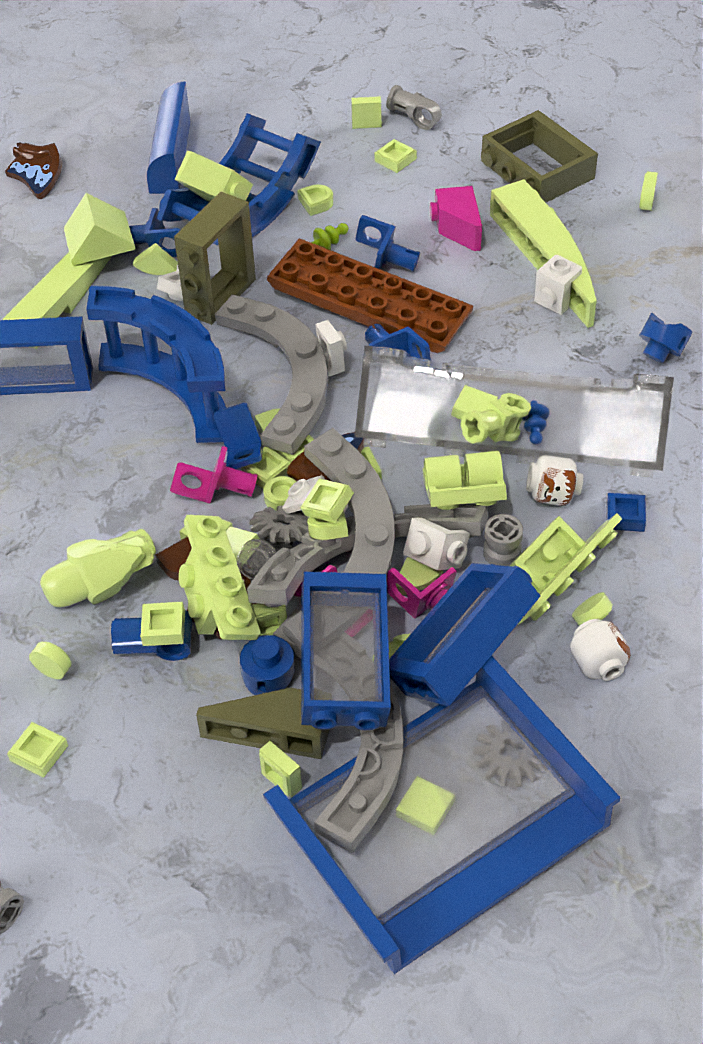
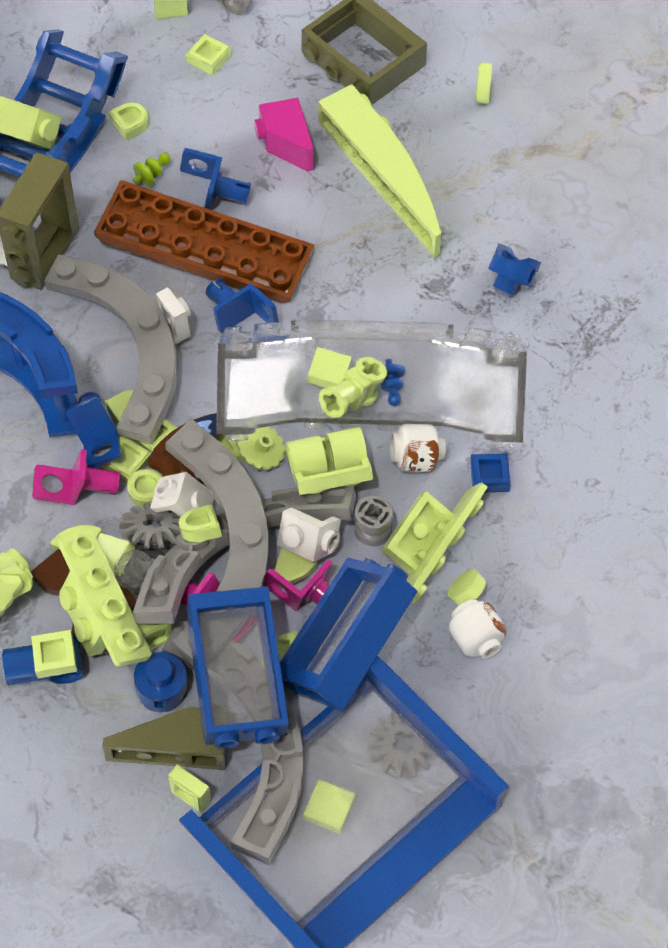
camera: 10 degrees left, 10 degrees up
(327, 500) = (196, 502): yellowish green tile -> none
(399, 467) = (262, 449): none -> yellowish green piece
(554, 283) = (397, 212): white bracket -> none

